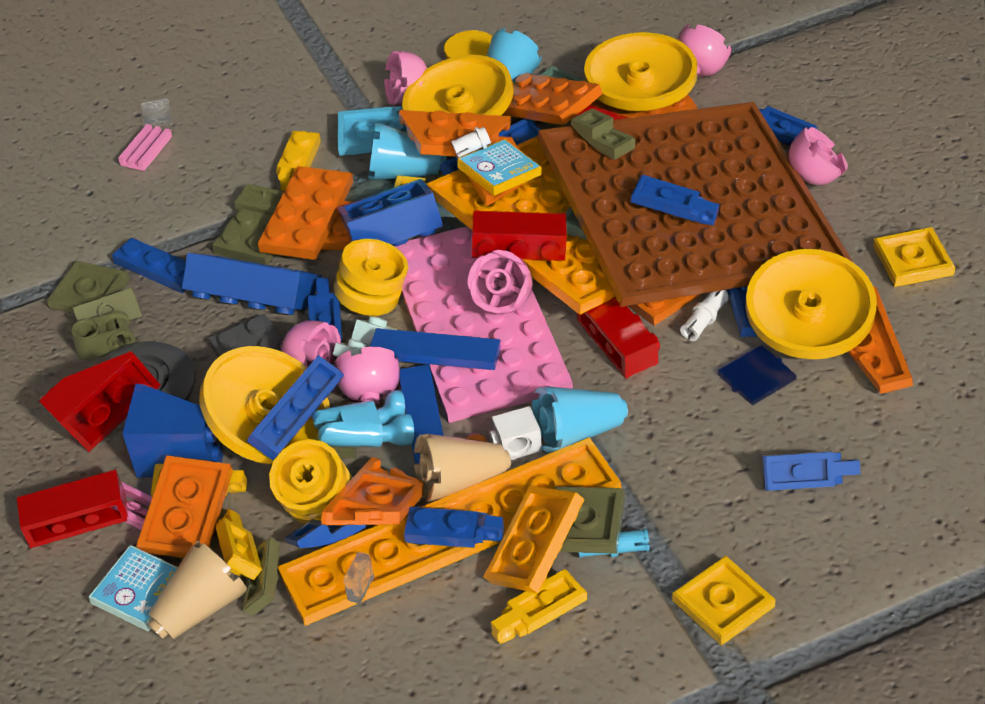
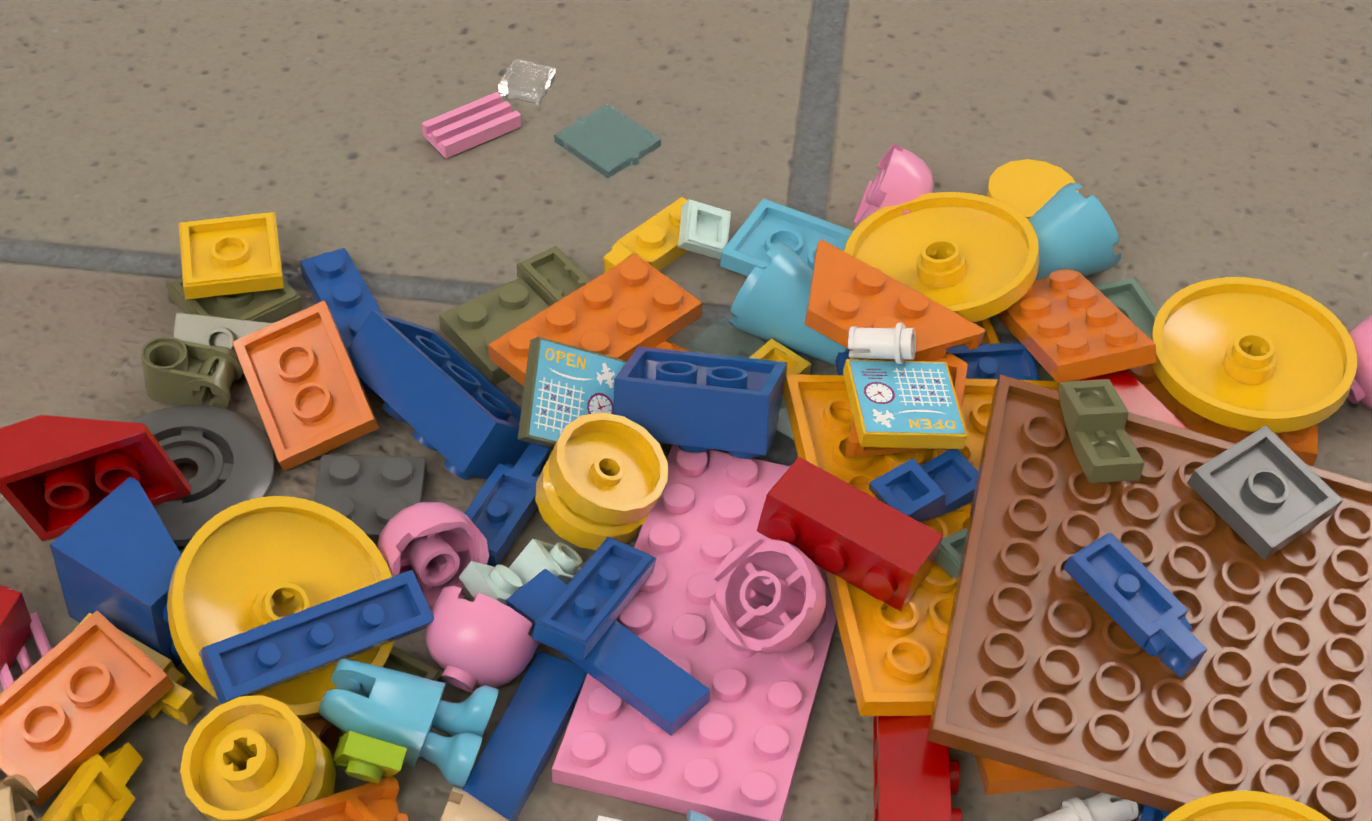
camera: 25 degrees right, 0 degrees up
(75, 267) = (230, 255): none -> yellow plate
(174, 308) = (305, 385): none -> orange plate
(226, 122) = (607, 140): none -> clear light blue piece
(319, 140) = (704, 229): none -> light aqua tile
(320, 244) = (563, 386): none -> tile
(361, 448) = (368, 757): none -> lime plate
(413, 327) = (594, 598): none -> blue tile
(538, 198) = (928, 489): none -> blue slope
(694, 127) = (1264, 492): none -> plate

